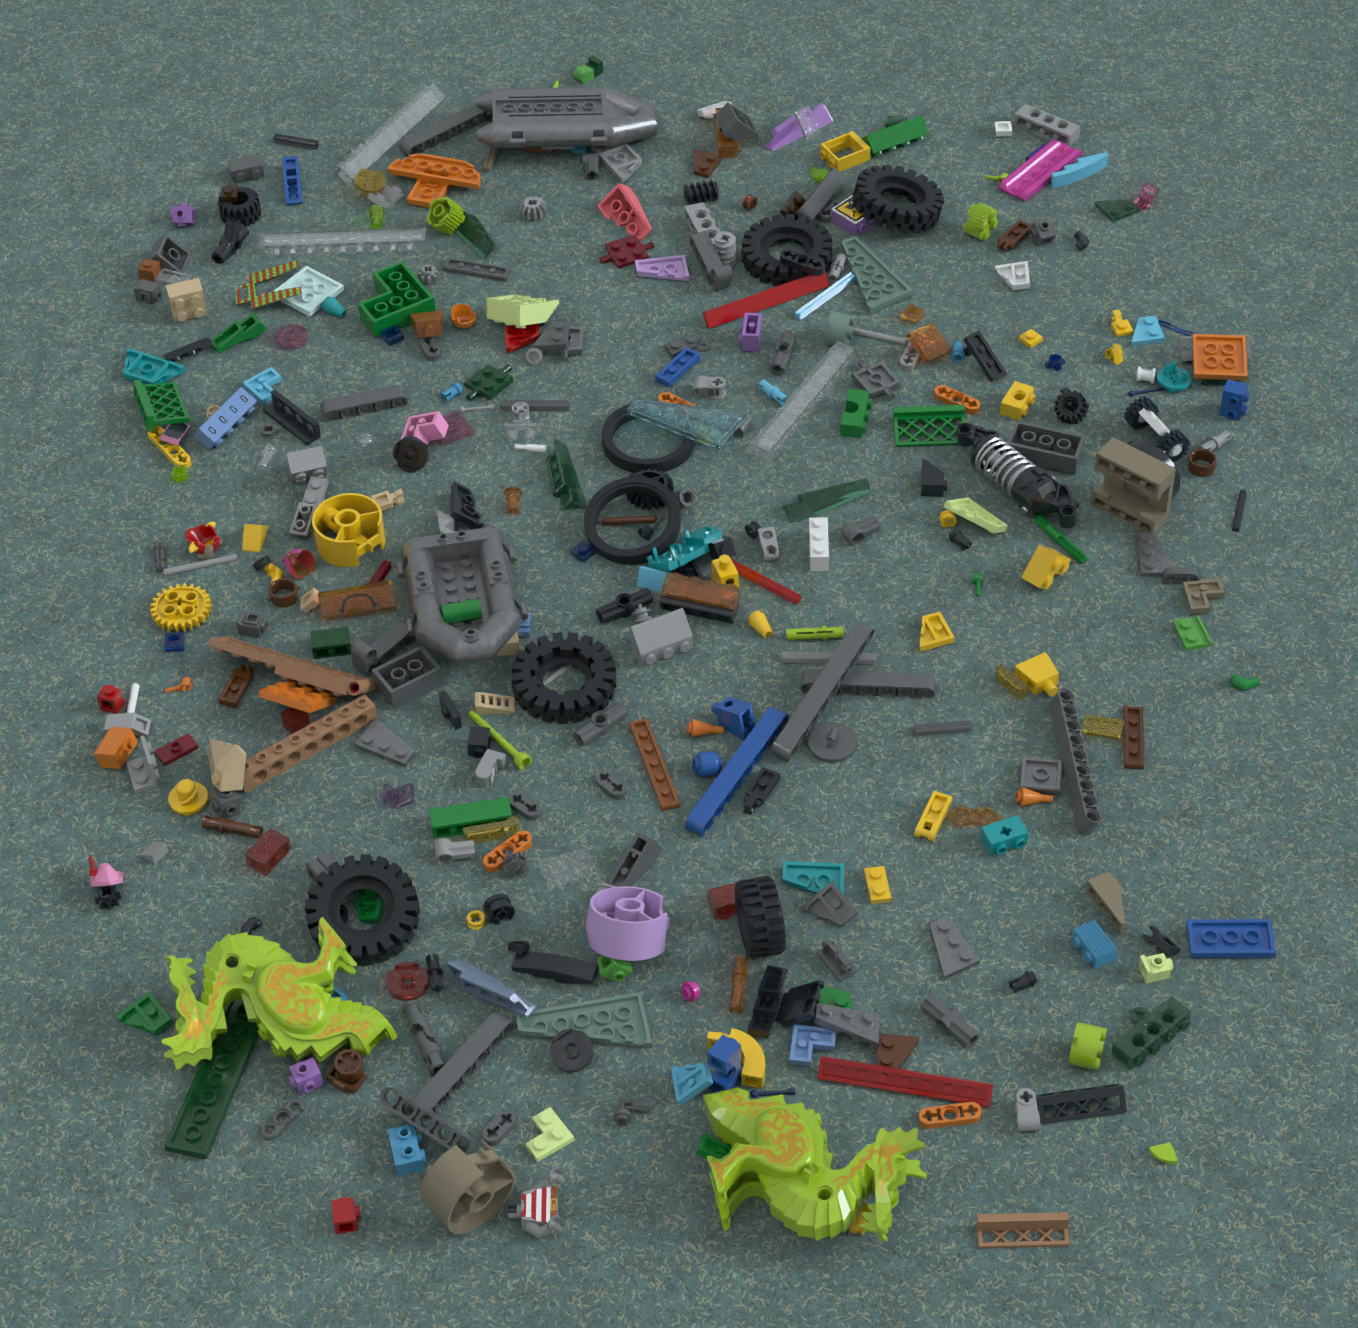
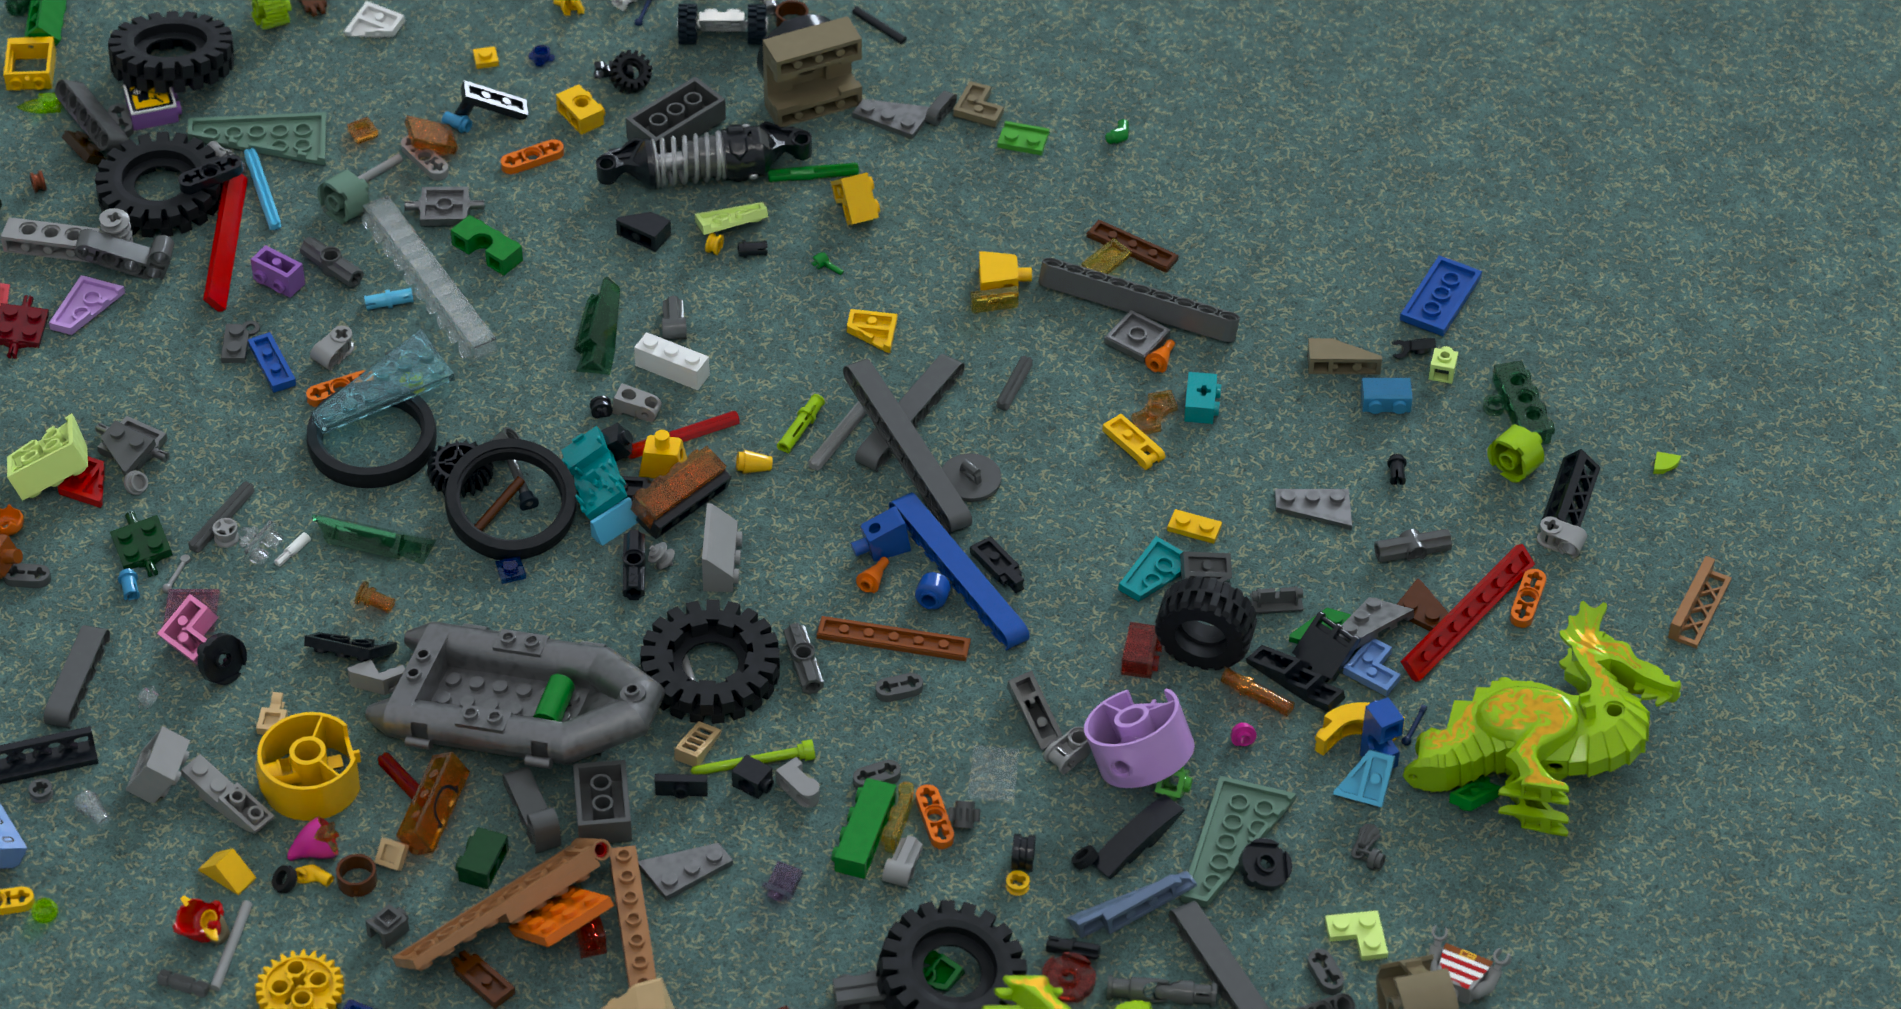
camera: 65 degrees left, 0 degrees up
(928, 415) = (540, 190): green fence -> none

